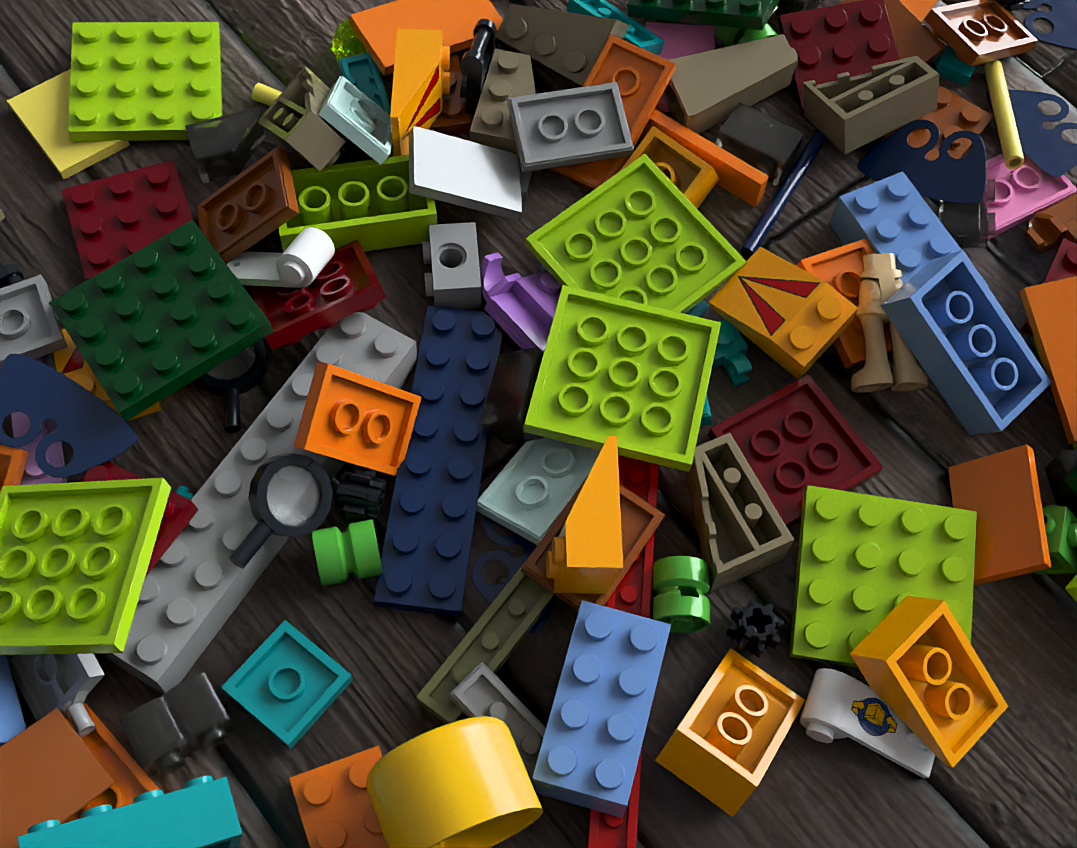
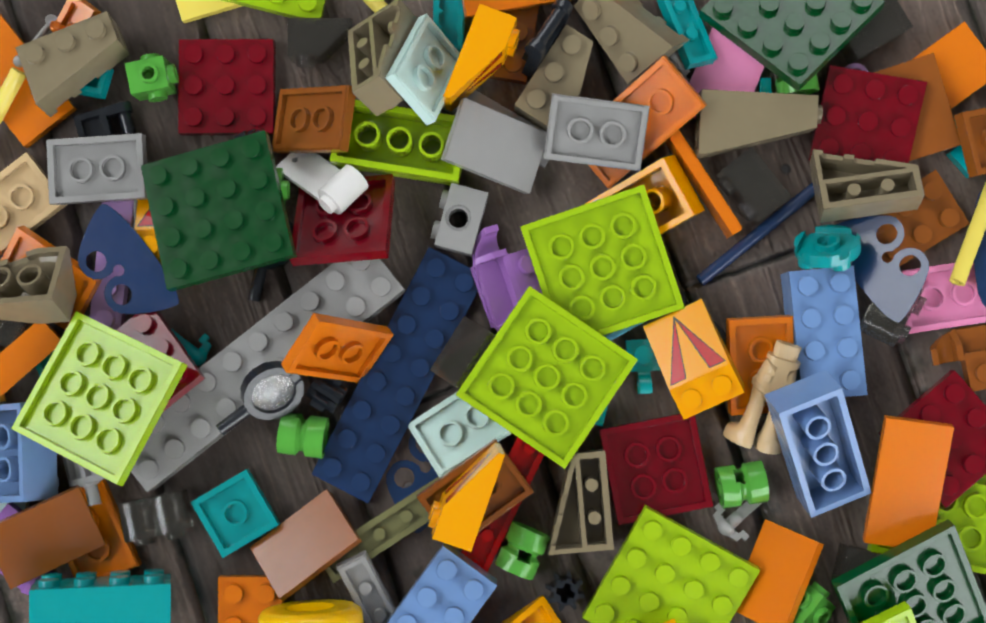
camera: 25 degrees right, 25 degrees up
(39, 228) = (152, 78): none -> bright green brick
(396, 686) = (305, 544): none -> tile
(866, 165) = (827, 248): none -> teal plate
(902, 431) = (741, 484): none -> bright green wheel
(910, 488) = (728, 525): none -> light grey piece

